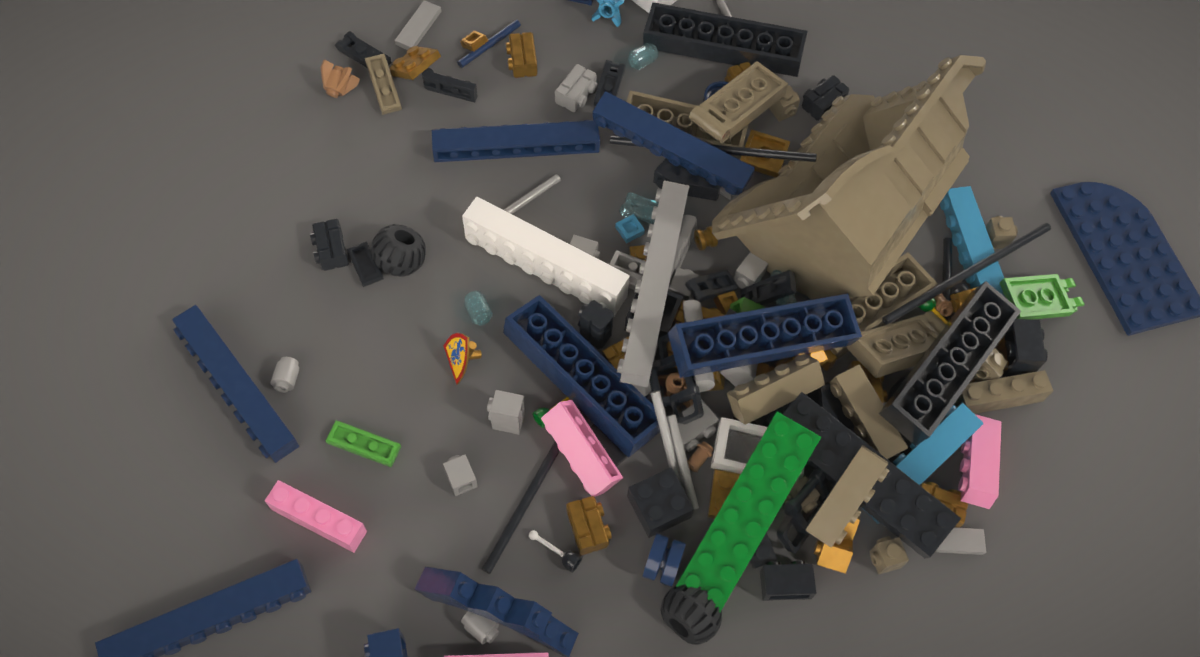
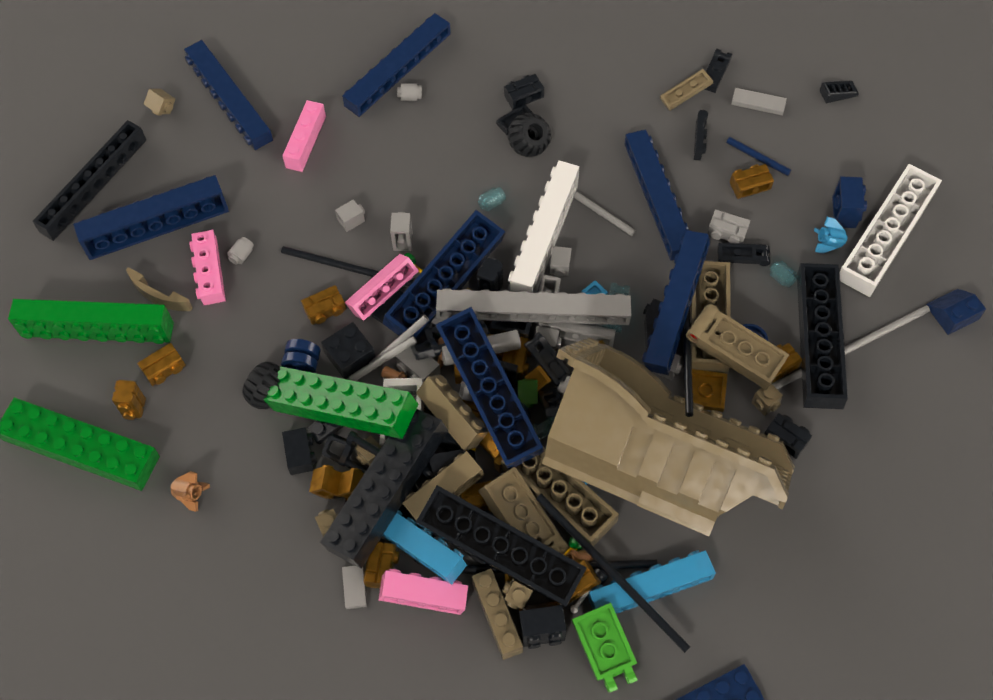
camera: 85 degrees right, 0 degrees up
(337, 80) = (677, 57): medium nougat brick -> none
(363, 443) = (366, 153): bright green tile -> none
(414, 62) = (713, 104): pearl gold plate -> none
(458, 352) = (447, 194): shield -> none
(474, 41) = (755, 143): pearl gold tile -> none
(497, 605) = (247, 245): dark blue arch -> none
(570, 559) = (295, 299): hinge -> none
(847, 495) = (356, 465): dark tan brick -> none
(1001, 231) = (673, 608): dark tan brick -> none

